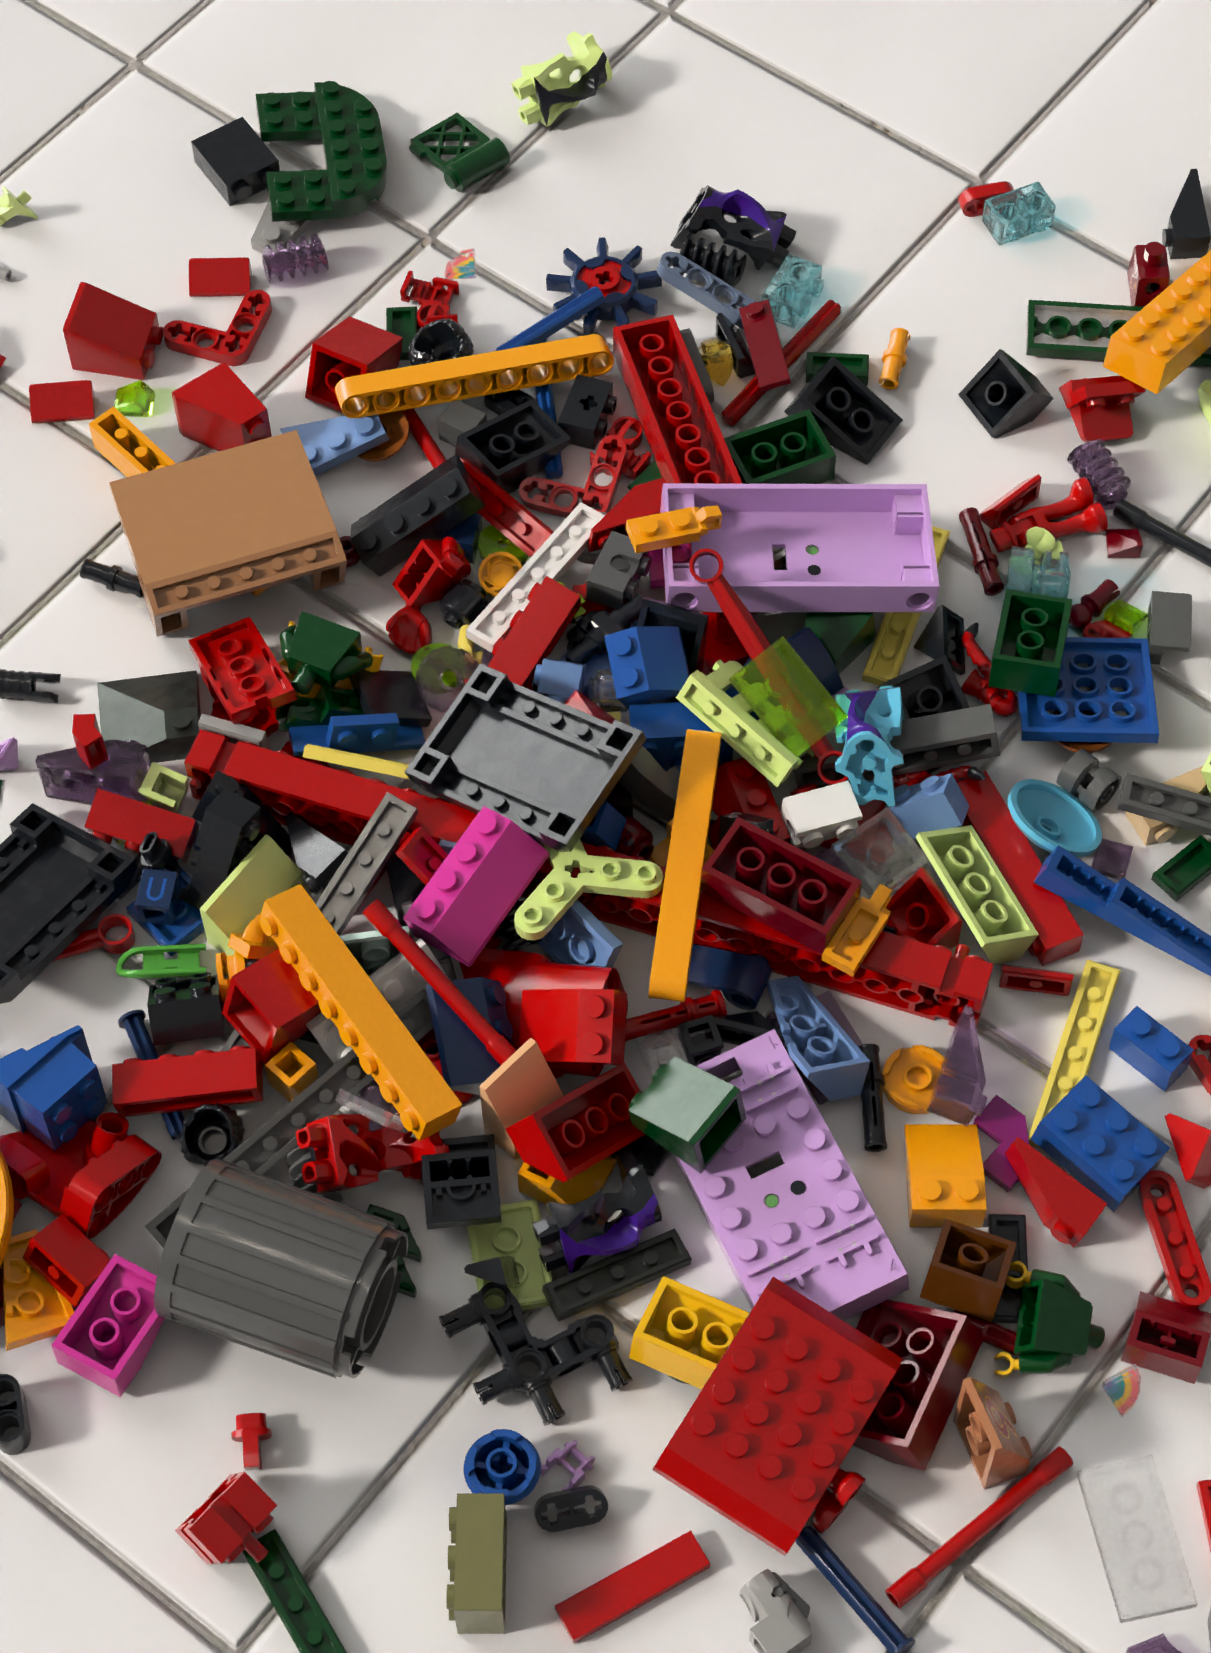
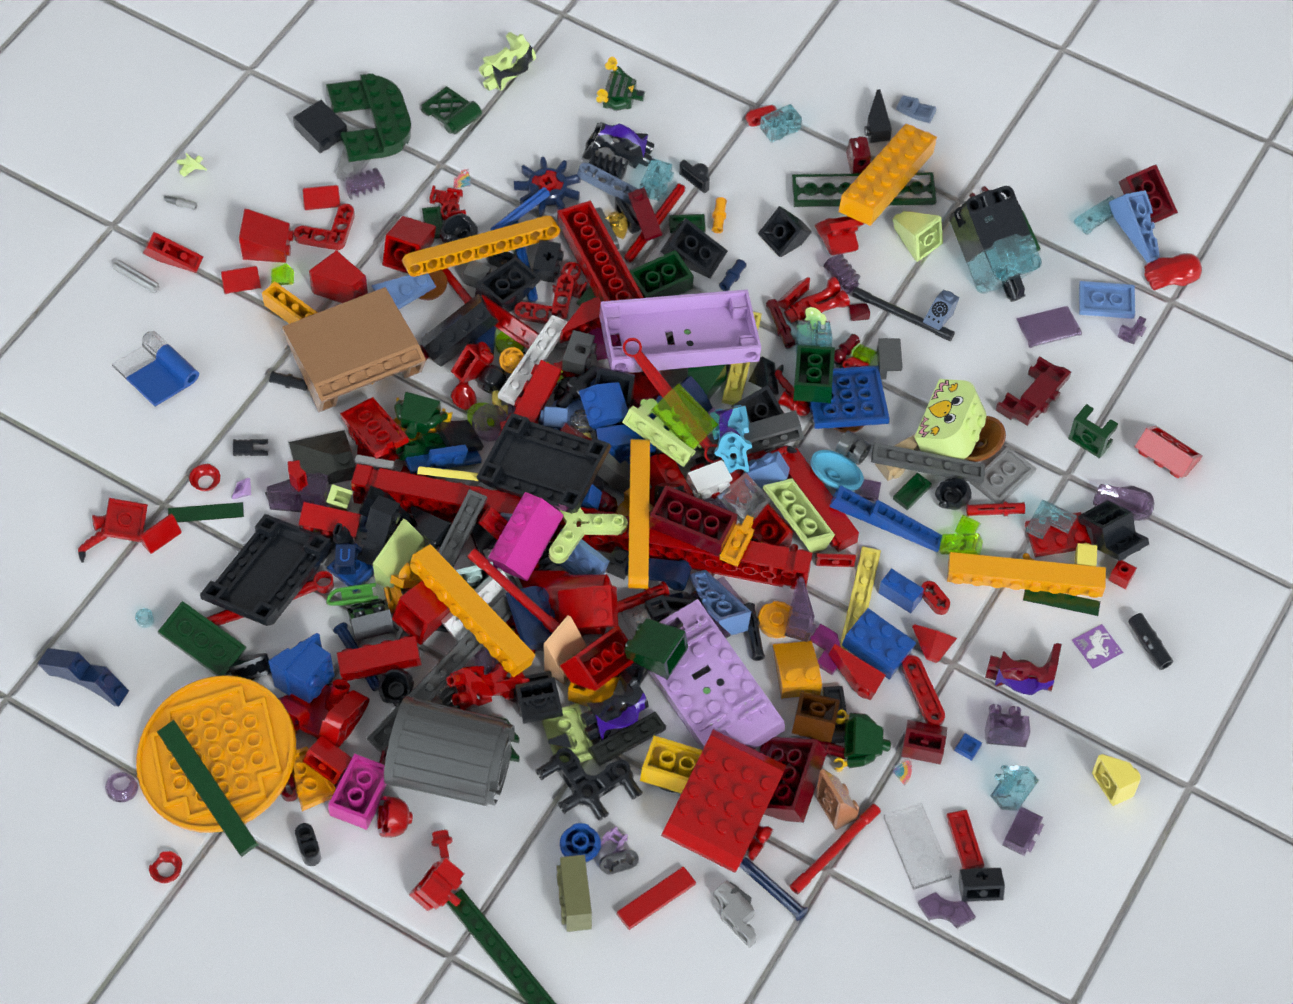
camera: 10 degrees left, 0 degrees up
(170, 1379) = (393, 817): none -> red cylinder
(291, 1071) = (435, 648): light orange brick -> none
(370, 1110) = (484, 663): clear tile -> none
(639, 948) = (618, 563): none -> black brick
(672, 527) = (609, 326): light orange hinge -> none
(748, 137) = (620, 89): none -> torso
(861, 288) = (695, 175): none -> black tile
(906, 460) = (732, 275): none -> dark blue pin

